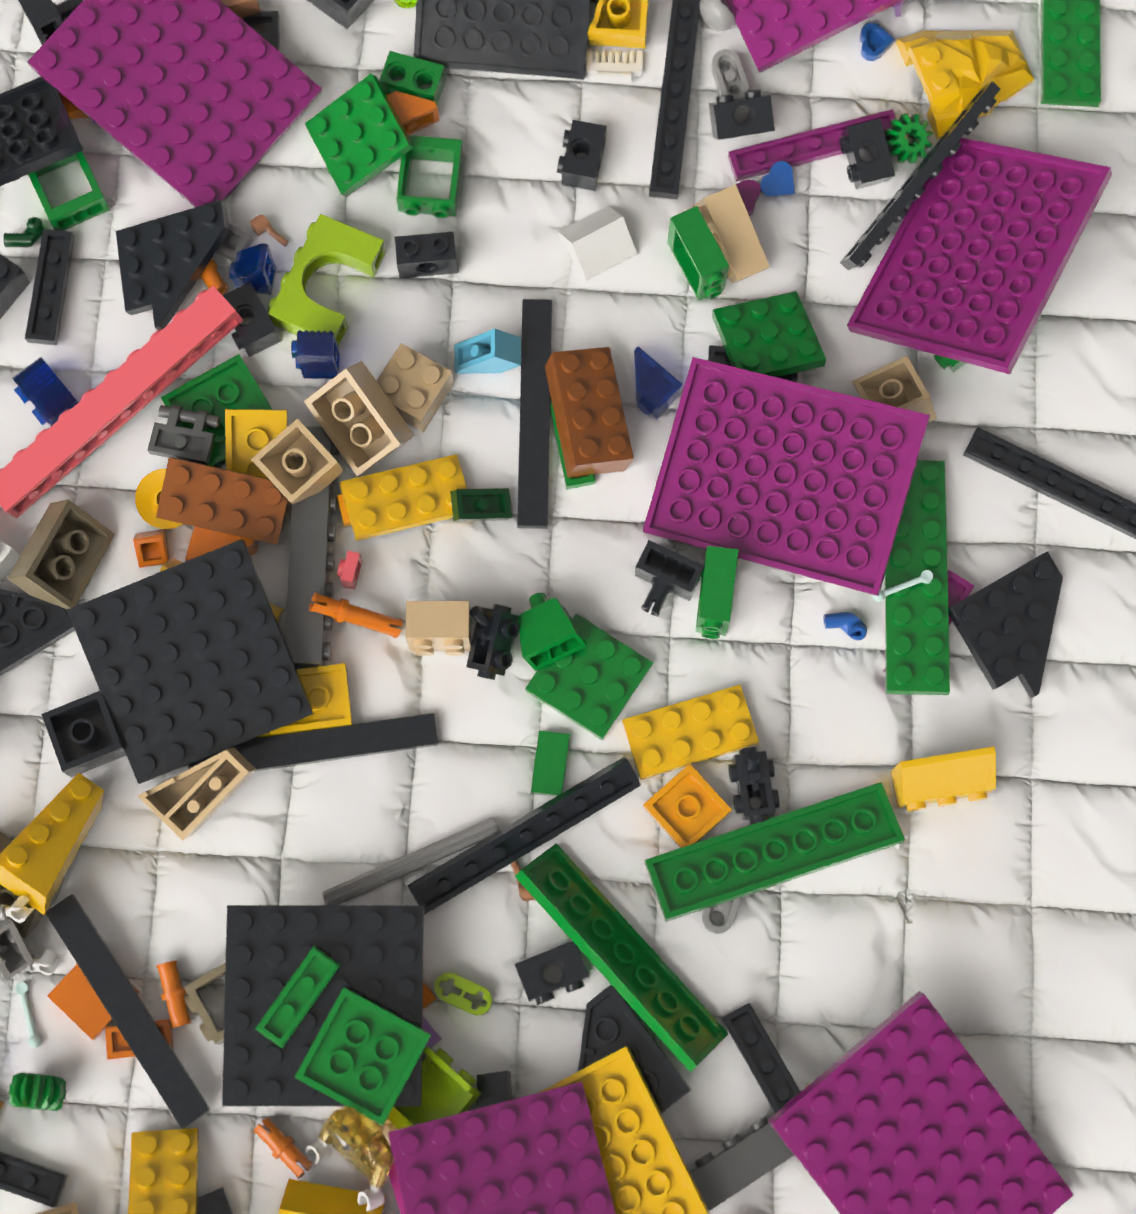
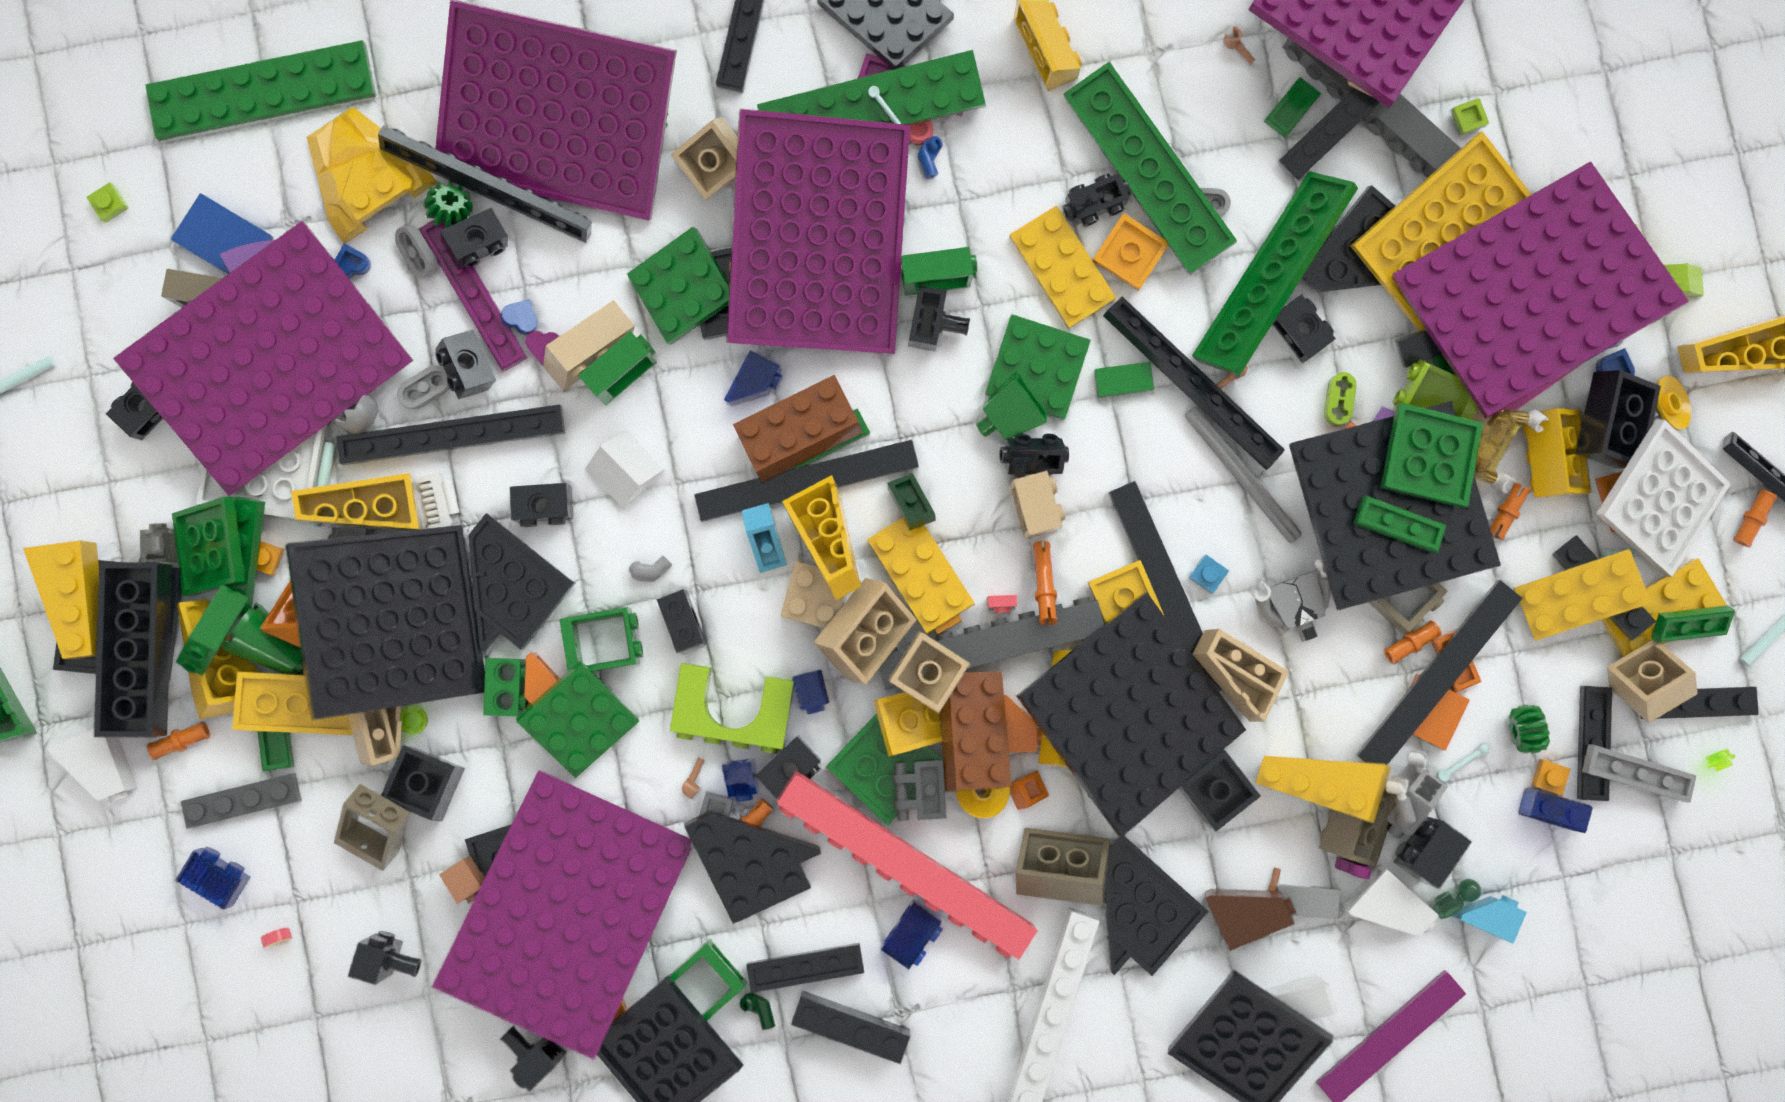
camera: 105 degrees left, 10 degrees up
(255, 870) = (1295, 601): none -> light grey torso
(315, 795) = (1208, 574): none -> dark azure plate
(467, 404) = (824, 531): none -> yellow wedge
(484, 240) = (649, 573): none -> light grey arm
(510, 110) = (511, 585): none -> black wing
(807, 1037) = (1292, 107): none -> green tile
(869, 100) = (416, 251): none -> light grey plate
(875, 622) = (920, 133): none -> coral tile
(893, 996) = (1236, 43): none -> nougat hand

